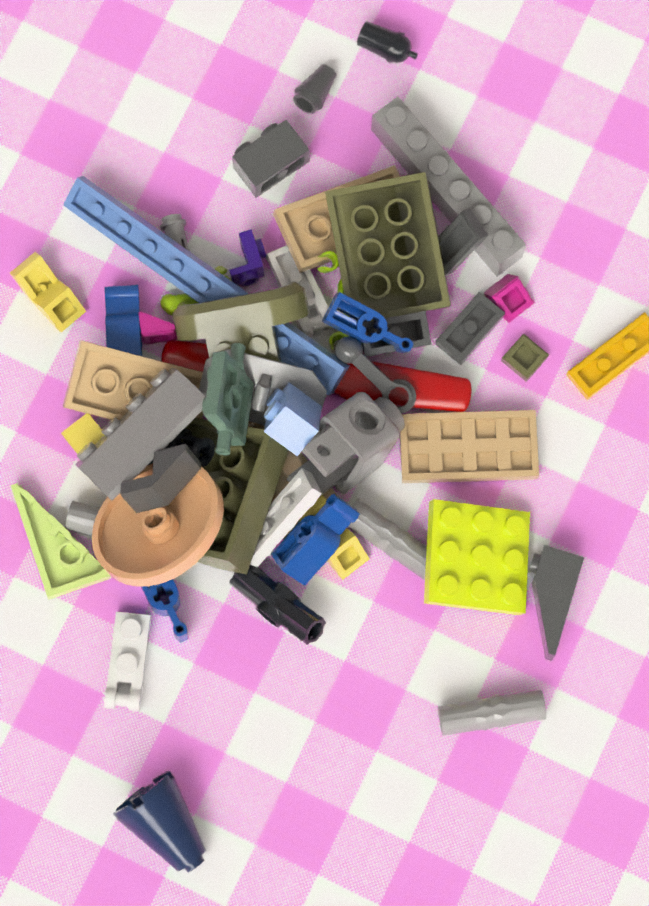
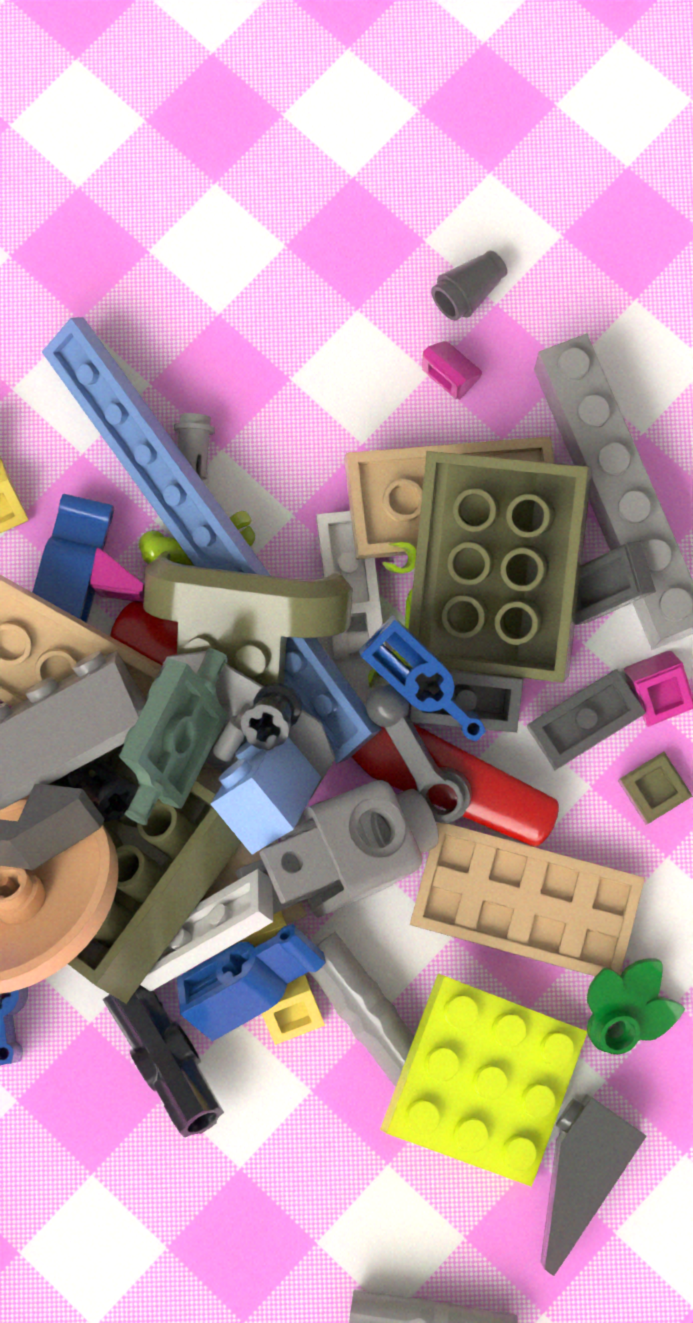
camera: 25 degrees right, 5 degrees up
(253, 253) = (298, 506): dark purple bracket -> none
(270, 157) = (369, 369): dark grey brick -> none
(291, 369) = (284, 713): none -> black bush
(320, 143) = (450, 368): none -> dark pink slope
(385, 43) = (596, 245): black piece -> none
(552, 485) = (632, 1003): none -> green plate

